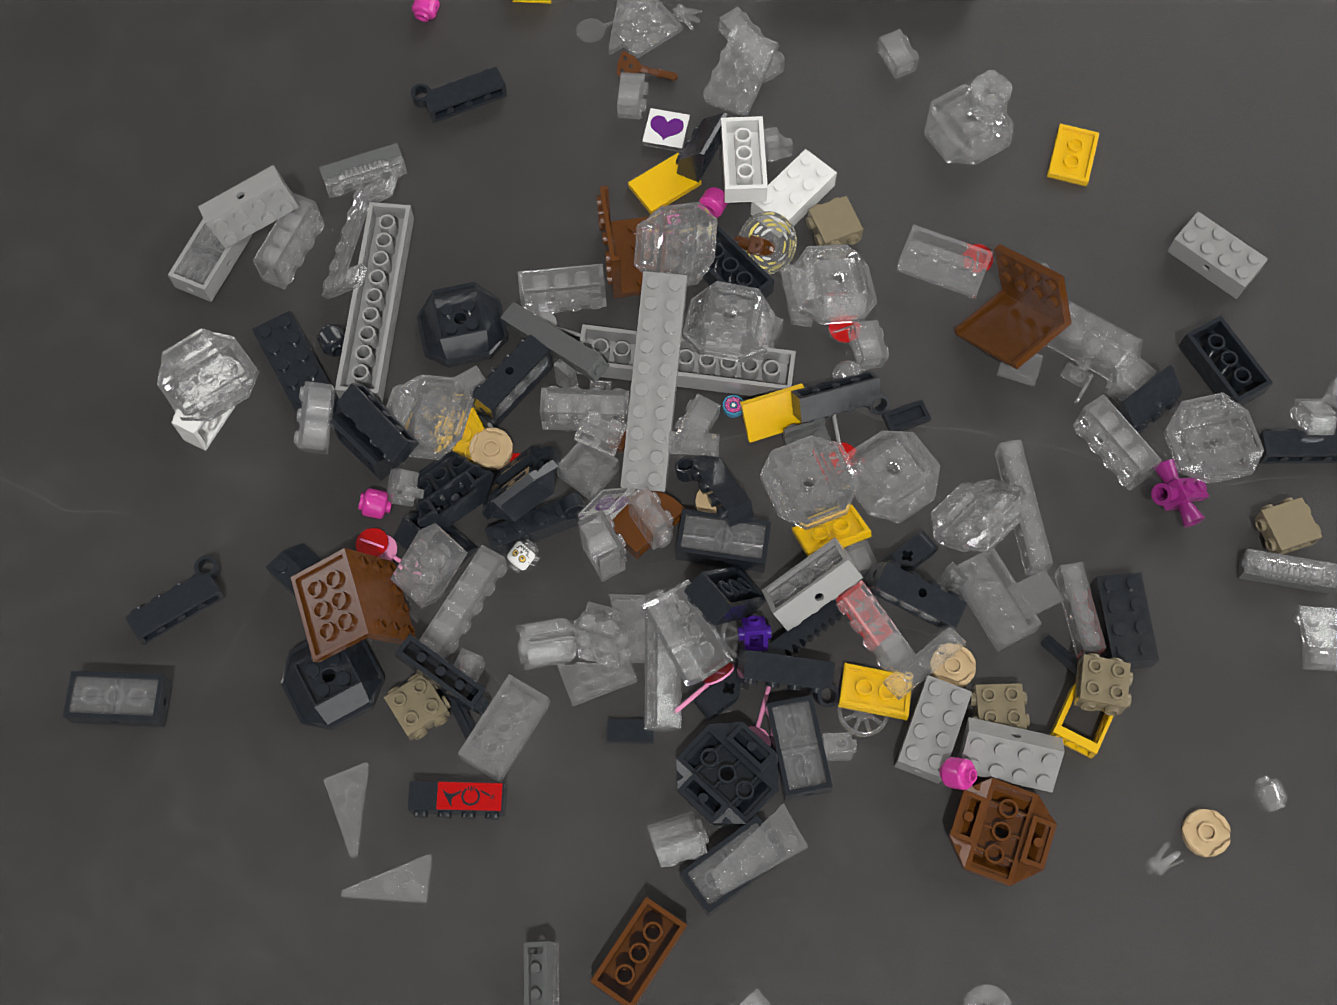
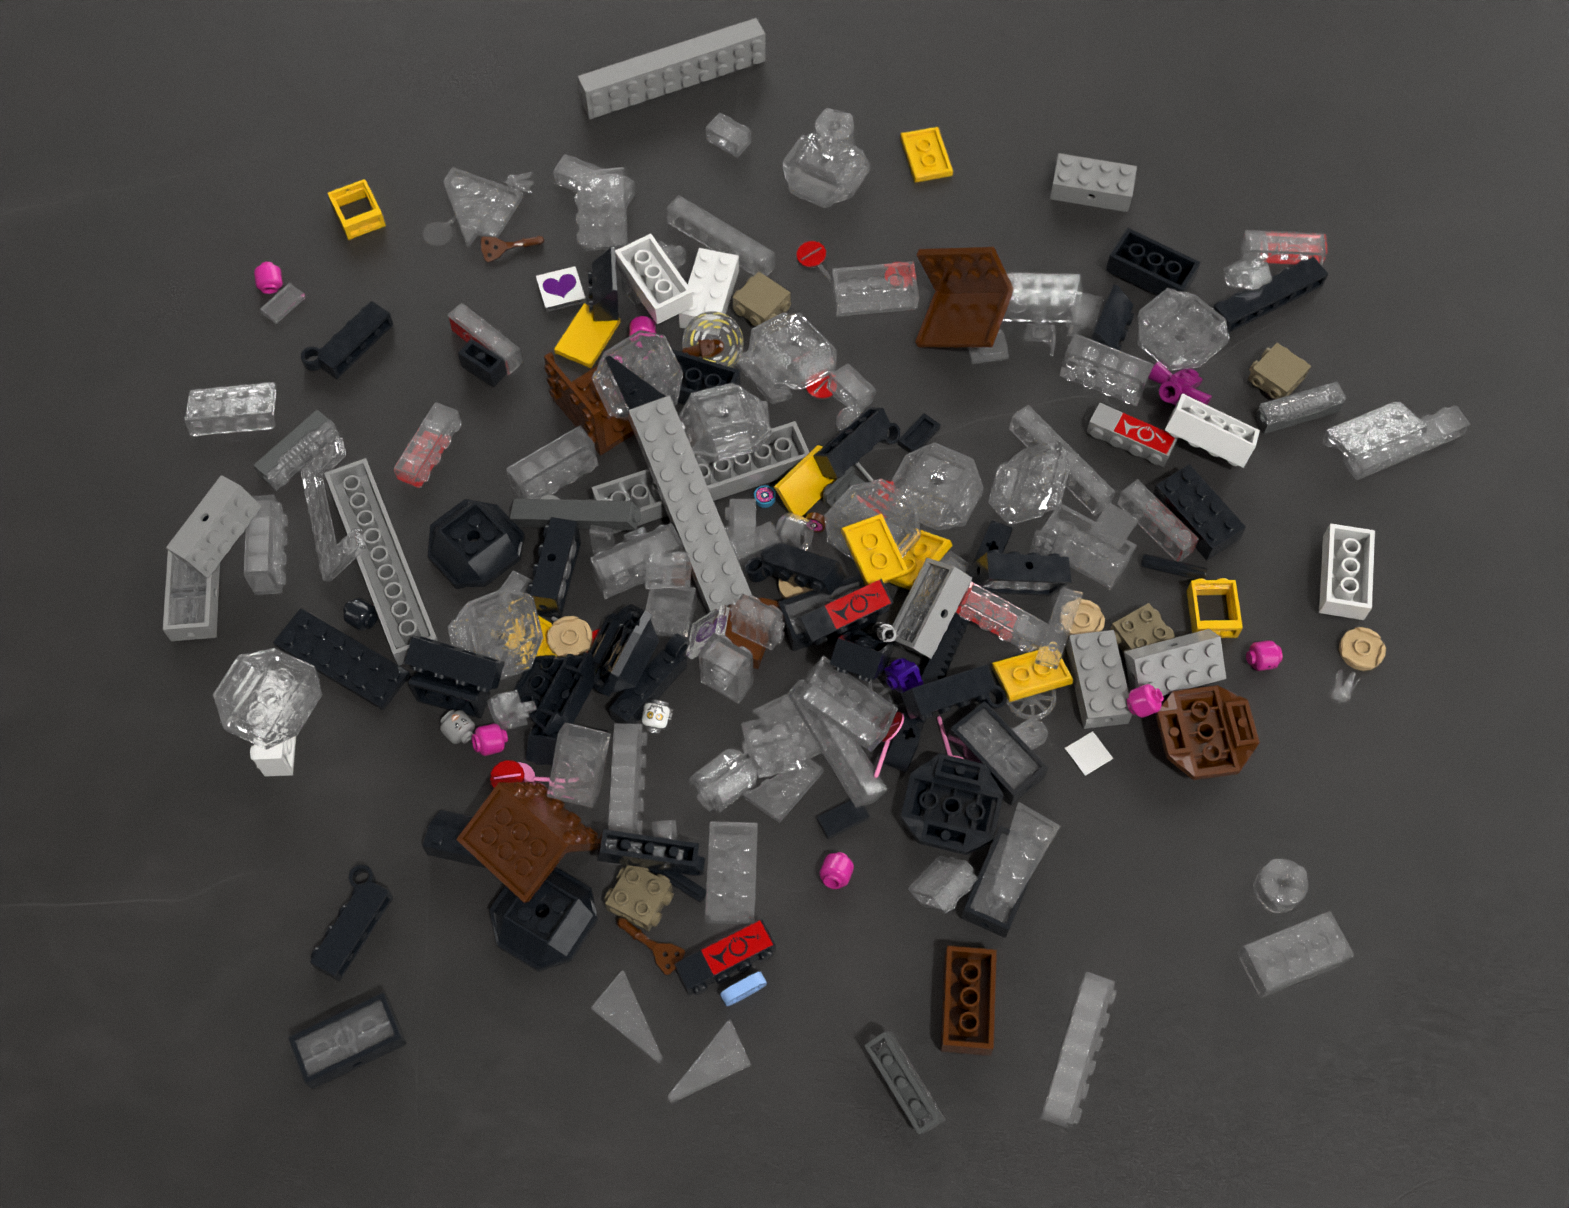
camera: 30 degrees left, 5 degrees down
(315, 417) = (390, 688): clear brick -> none
(332, 108) = (231, 409): none -> clear bracket
(354, 478) = (457, 726): none -> light grey head
(407, 759) = (657, 948): none -> reddish brown piece
(426, 34) = (282, 303): none -> clear tile
(456, 834) = (743, 988): none -> light blue beam
(472, 218) = (427, 445): none -> clear brick
(558, 166) = (482, 362): none -> black brick
(573, 145) = (471, 326): none -> clear brick
(595, 775) = (836, 870): none -> dark pink head
(631, 95) = (512, 272): clear brick -> none
(666, 250) = (632, 387): none -> black wing
(733, 549) = (845, 612): none -> brick
(734, 446) = (792, 526): none -> clear helmet
(759, 585) = (886, 628): none -> light grey pin
(762, 451) = (818, 521): none -> reddish brown tile
(793, 507) = (874, 550): none -> yellow tile
(833, 147) = (720, 236): none -> clear brick
(885, 791) = (1089, 753): none -> white sticker
(908, 202) = (812, 255): none -> red piece
(1103, 684) = (1215, 568): dark tan brick -> none
(1104, 789) = (1264, 655): none -> dark pink head
(1105, 516) = (1131, 435): none -> light grey brick
(1183, 551) = (1212, 431): none -> white brick
(1234, 752) = (1347, 571): none -> white brick
(1269, 794) = (1392, 591): clear head -> none

